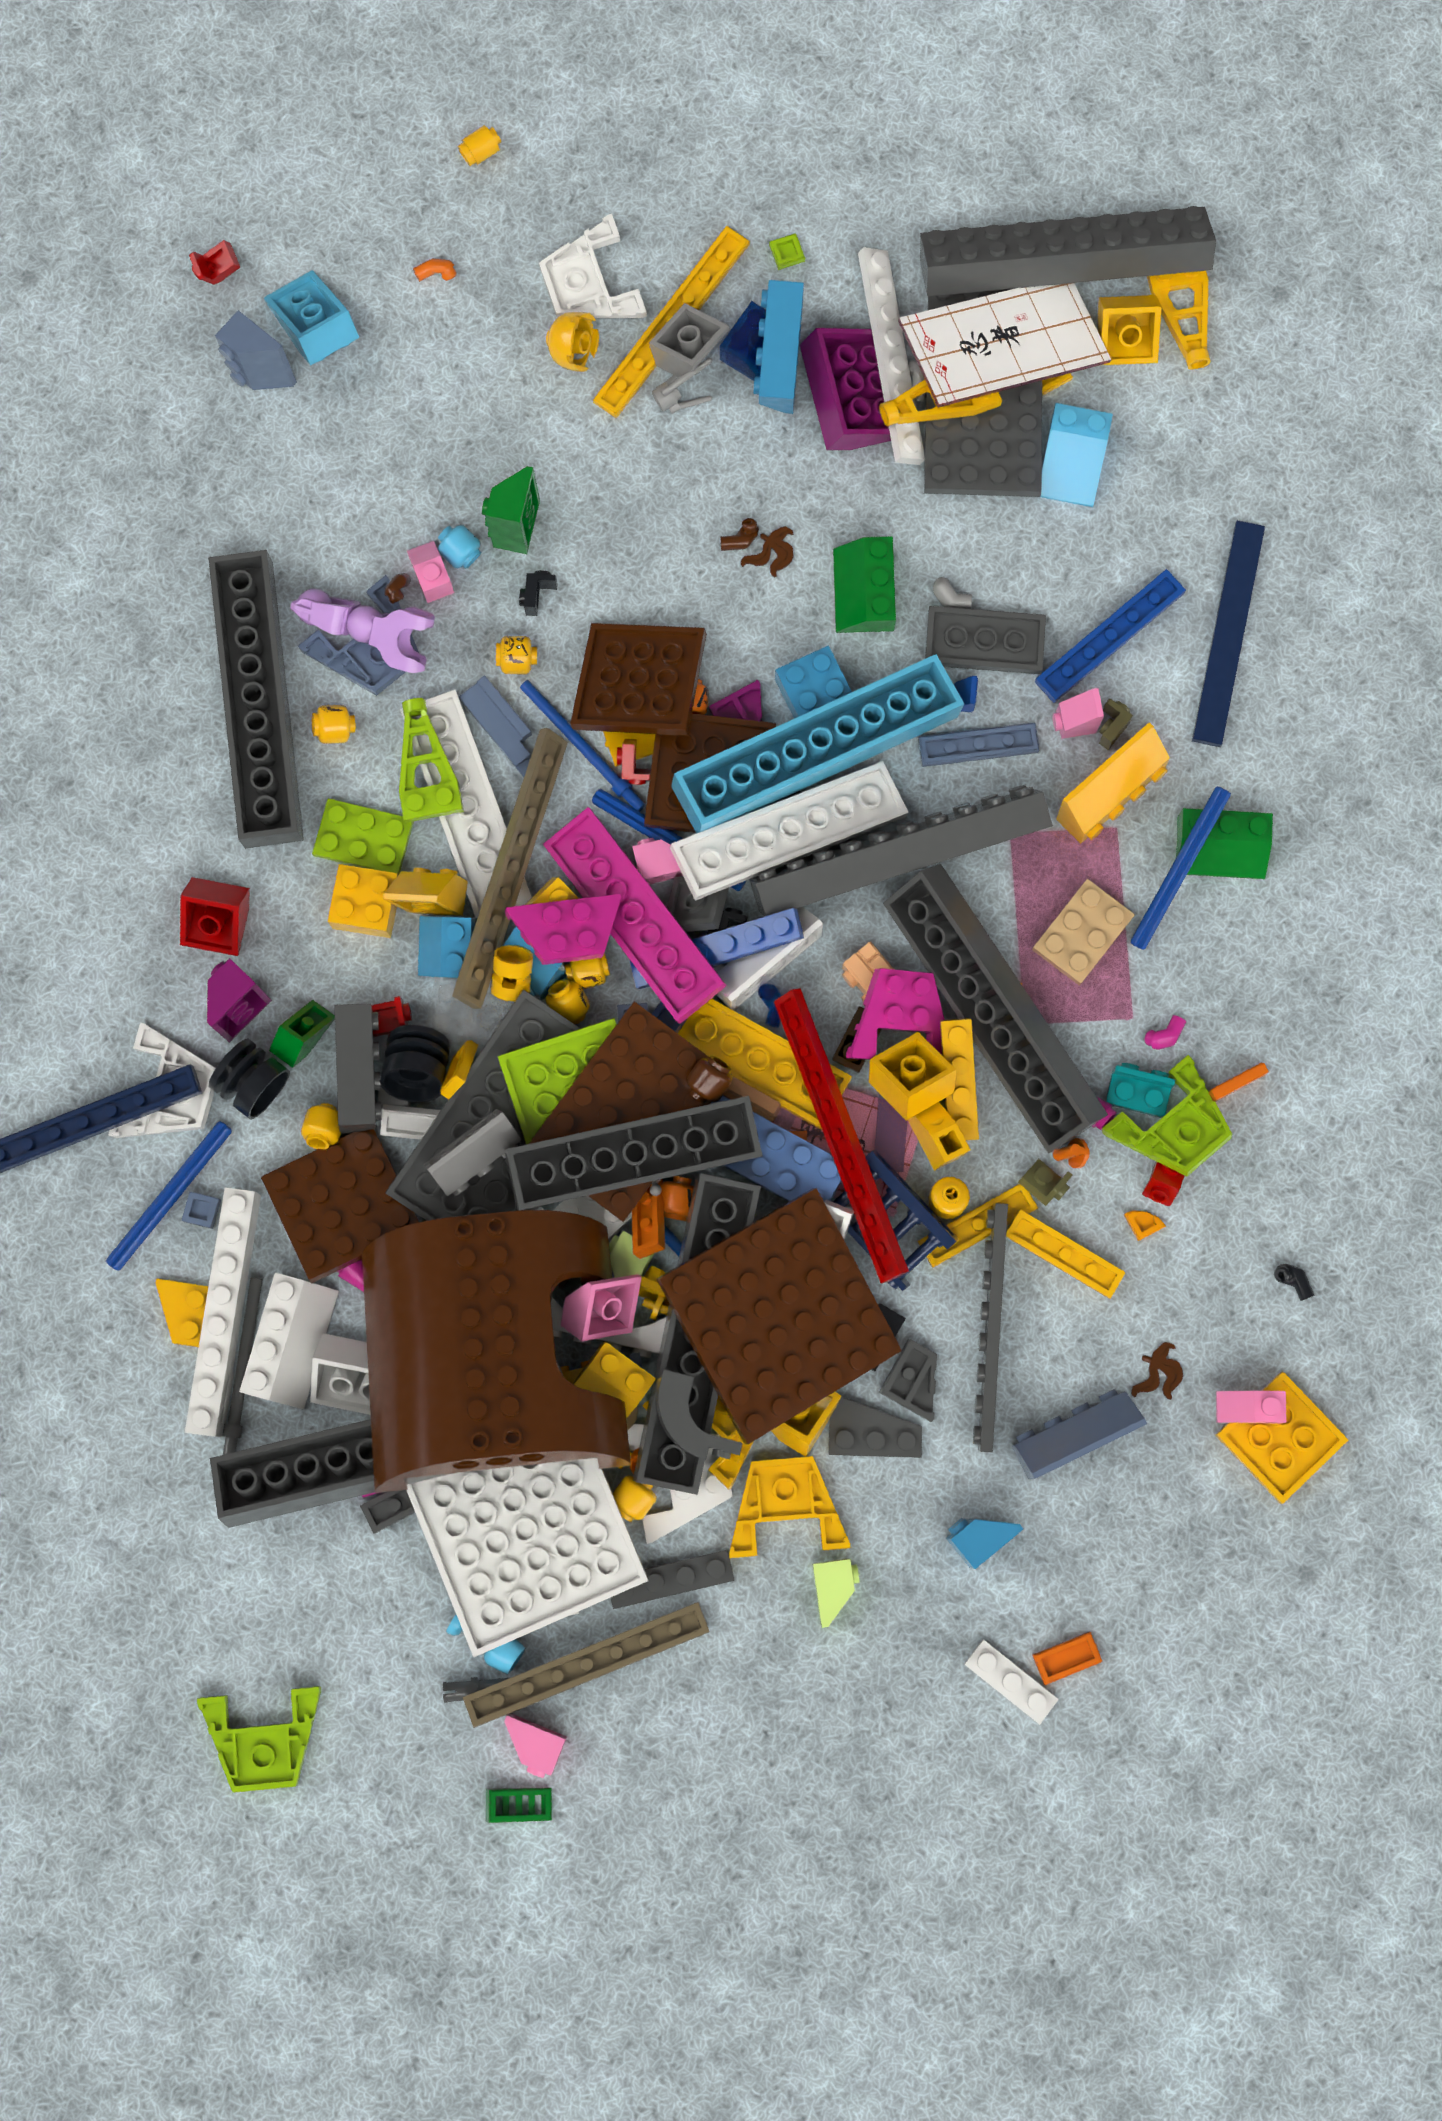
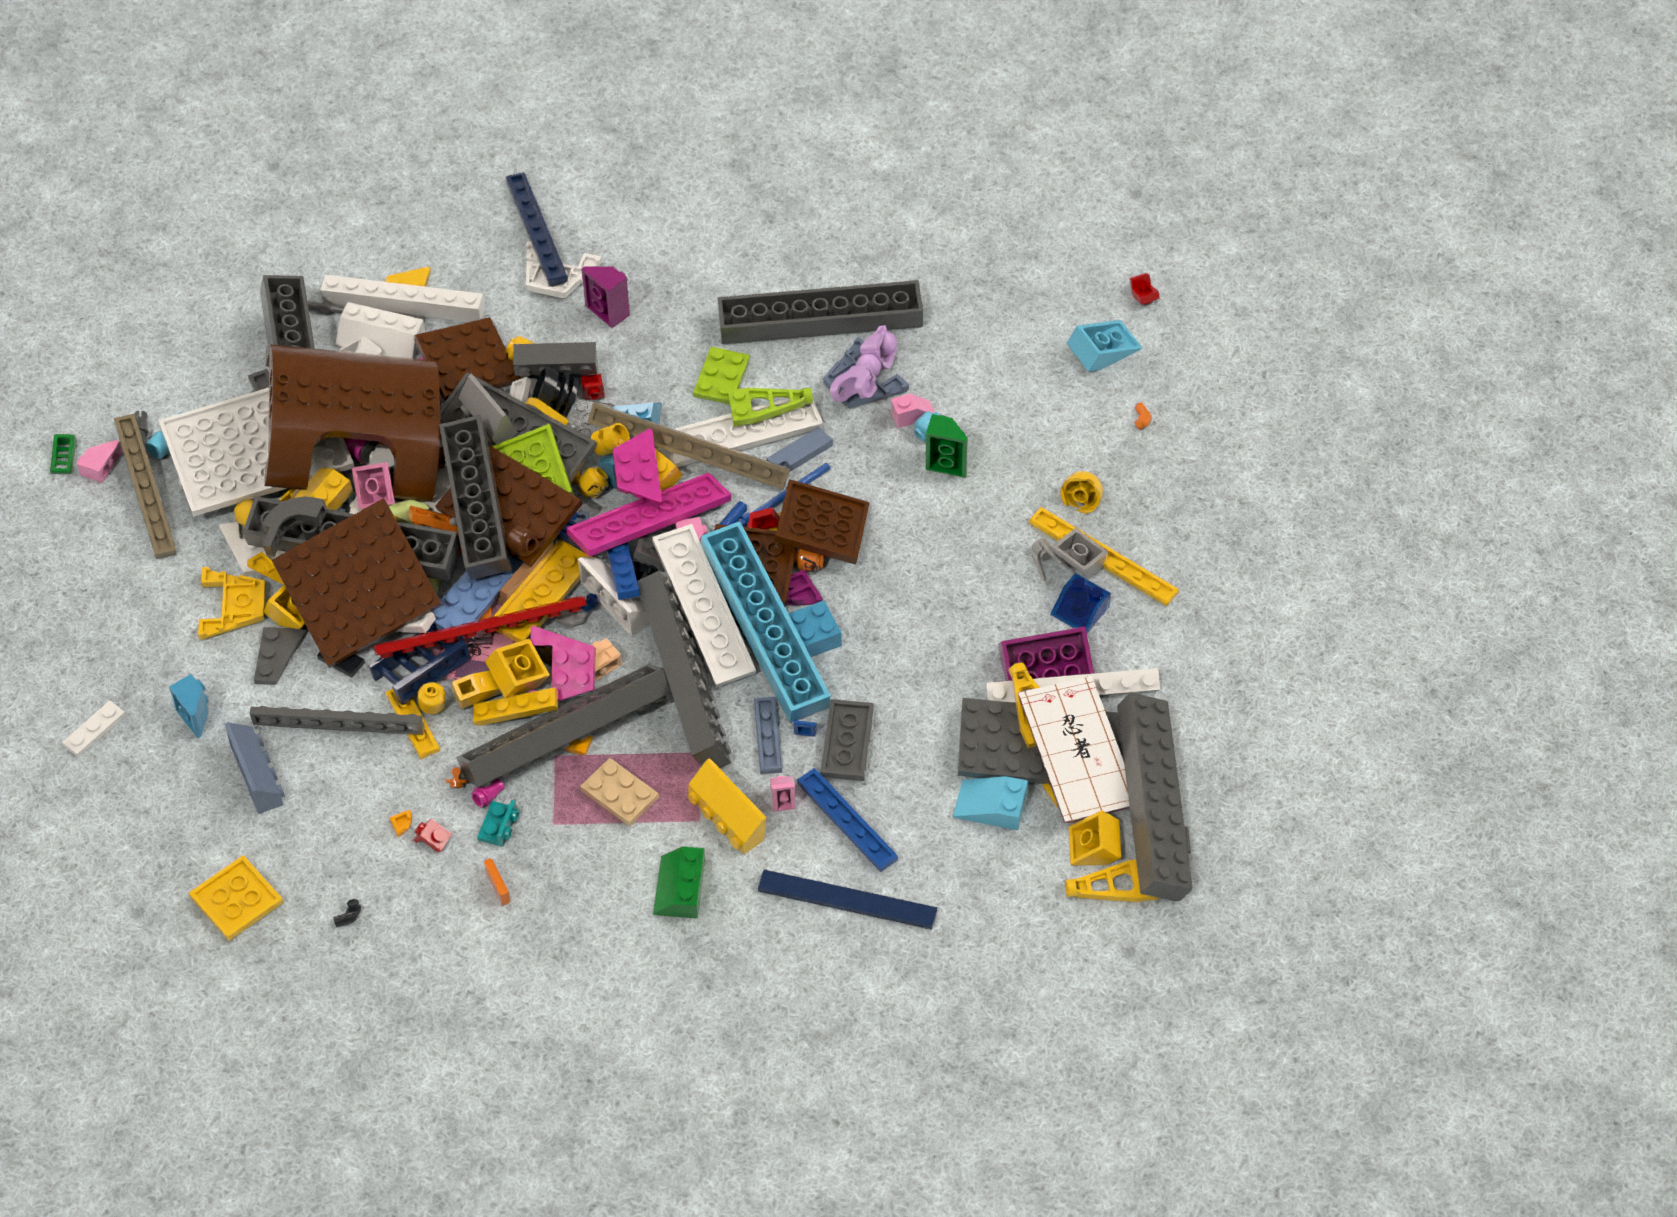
camera: 90 degrees right, 25 degrees down
(168, 1196) = (484, 274): blue axle -> none
(201, 1210) = (473, 285): sand blue plate -> none
(213, 916) = (671, 292): red slope -> none
(249, 1078) = (554, 307): black wheel -> none
(253, 355) = (1067, 301): sand blue slope -> none
(262, 1754) = (118, 323): lime wing -> none
(301, 1033) = (583, 331): green slope -> none
(333, 724) = (801, 355): yellow head -> none
(359, 901) = (673, 372): yellow brick -> none
(393, 588) = (896, 385): reddish brown arm -> none
(428, 892) = (674, 401): yellow slope -> none
(479, 145) = (1239, 441): yellow brick -> none
(515, 655) = (846, 456): yellow head -> none
(530, 595) = (893, 468): black bracket -> none
(577, 282) = (1135, 497): white wing -> none
(588, 972) = (614, 498): yellow head -> none
(679, 1578) = (193, 541): dark grey plate -> none
(743, 538) = (932, 595): reddish brown arm -> none
(780, 345) = (1071, 607): dark azure slope -> none
(782, 549) = (924, 620): reddish brown piece -> none
(787, 251) = (1160, 628): lime tile -> none
(834, 1587) = (172, 624): yellowish green slope -> none
(865, 585) = (891, 668): green slope -> none
(912, 1380) = (307, 677): dark grey wing -> none
(948, 596) = (886, 715): light grey arm -> none
(1045, 1183) = (437, 759): olive bracket -> none
(1064, 1254) = (384, 768): yellow plate -> none
(1067, 1658) = (104, 762): orange tile -> none
(1114, 728) = (776, 819): olive bracket -> none
(1167, 1037) = (536, 842): dark pink arm -> none
(1169, 1367) = (297, 834): reddish brown piece -> none
(1180, 867) = (658, 843): blue axle -> none
(1185, 1134) = (463, 845): lime wing -> none
(1251, 1407) = (257, 872): bright pink slope -> none

